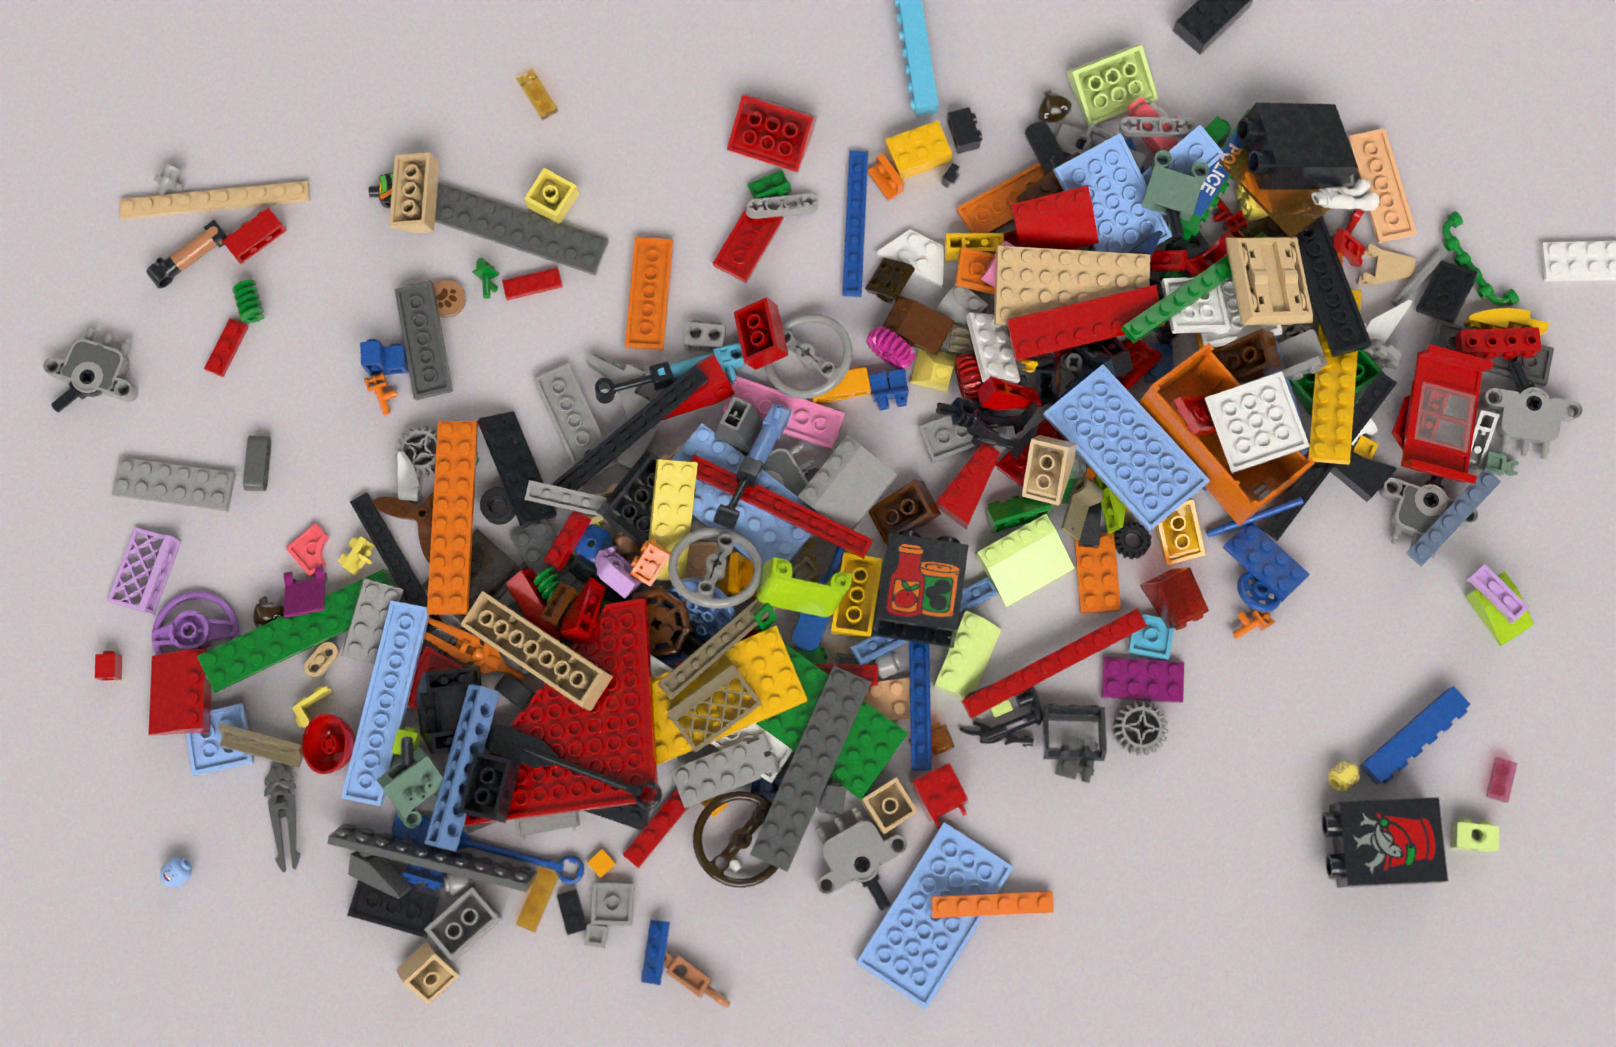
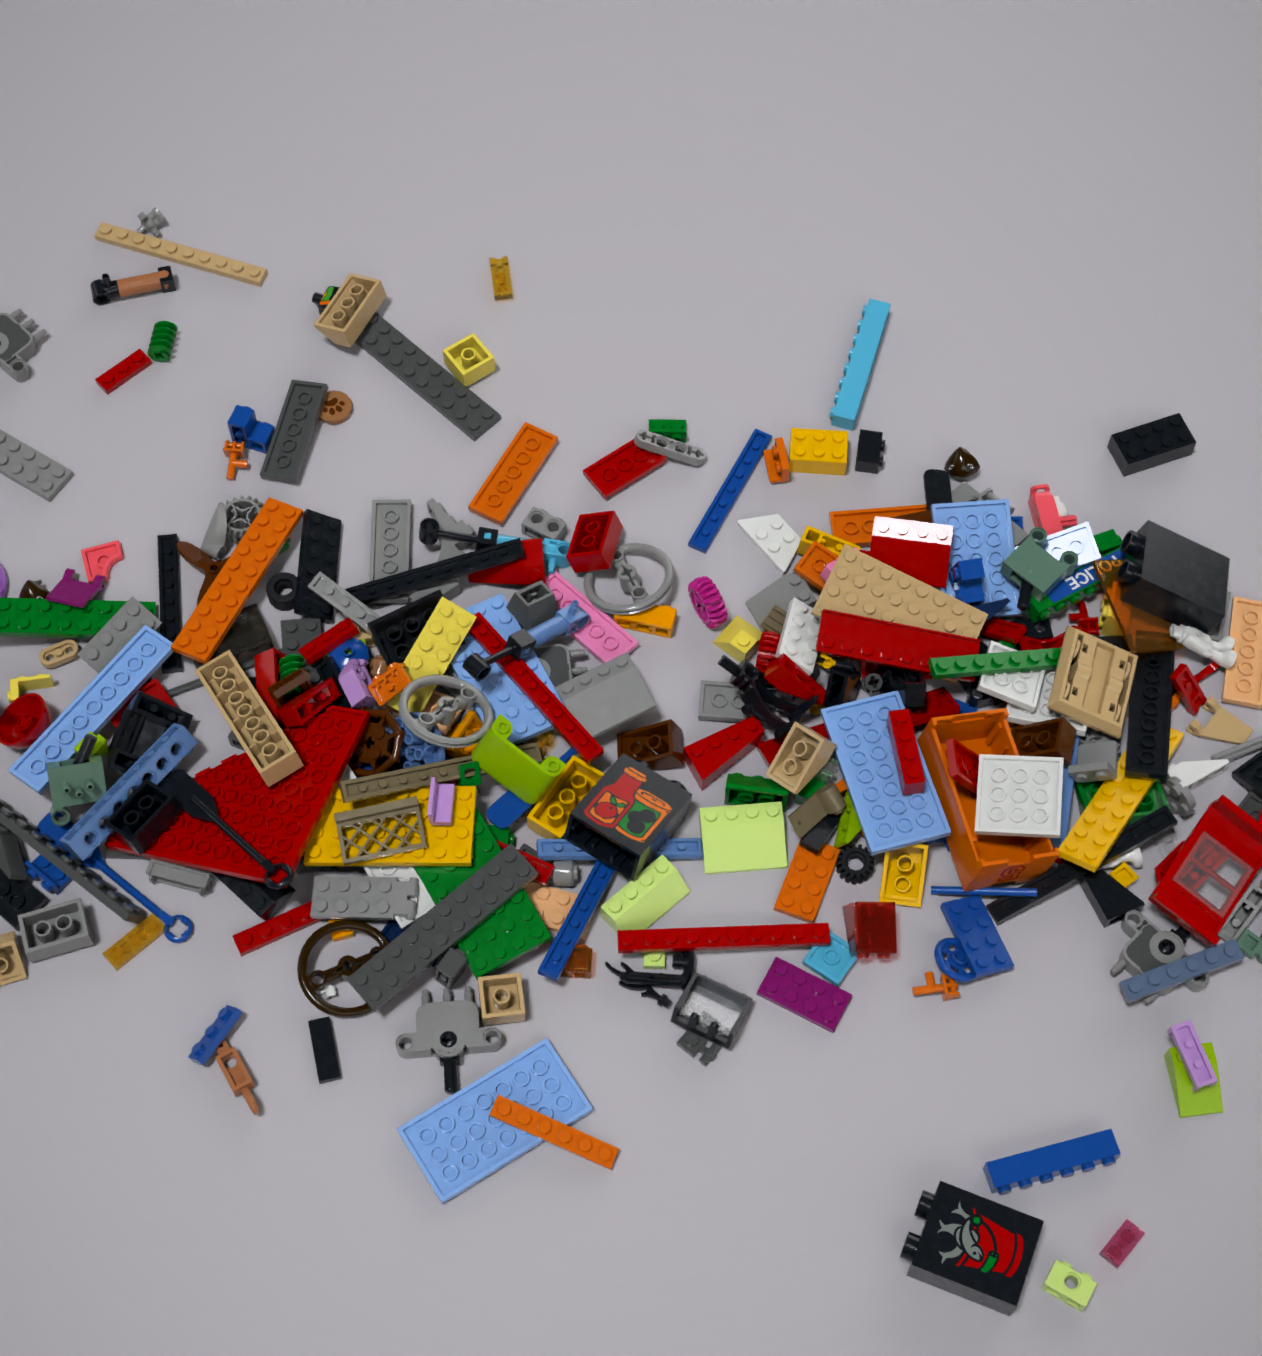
camera: 20 degrees right, 15 degrees down
(254, 235) = (197, 293): red brick -> none
(257, 463) = (96, 471): dark grey beam -> none
(358, 556) = (138, 581): light yellow hips -> none
(457, 885) = (70, 890): light grey head -> none
(484, 656) = (204, 713): orange sword -> none
(486, 272) = (378, 399): green arm -> none
(514, 690) = (211, 748): black tyre -> none
(532, 283) = (414, 425): red plate -> none
(572, 912) = (159, 967): black plate -> none
(596, 936) = (169, 996): light grey plate -> none
(601, 863) = (209, 935): light orange tile -> none
(612, 904) = (199, 975): light grey plate -> none
(756, 658) = (441, 803): none -> lavender panel
(756, 920) = (324, 1050): none -> black tile
(771, 132) = (692, 386): red slope -> none
(881, 392) = (696, 644): blue hips -> none
(889, 279) = (736, 547): dark brown plate -> none
(918, 324) = (743, 592): reddish brown slope -> none
(940, 793) = (554, 1005): red container -> none
(950, 175) = (837, 483): black plate -> none
(1112, 83) = (1023, 463): yellowish green slope -> none
(1118, 230) = (966, 579): none -> blue brick
(1139, 423) = (905, 752): none -> red brick
(1142, 710) = (787, 1041): light grey gear -> none
(1157, 130) = (1050, 510): light grey beam -> none
(1344, 776) = (961, 1168): light yellow head -> none

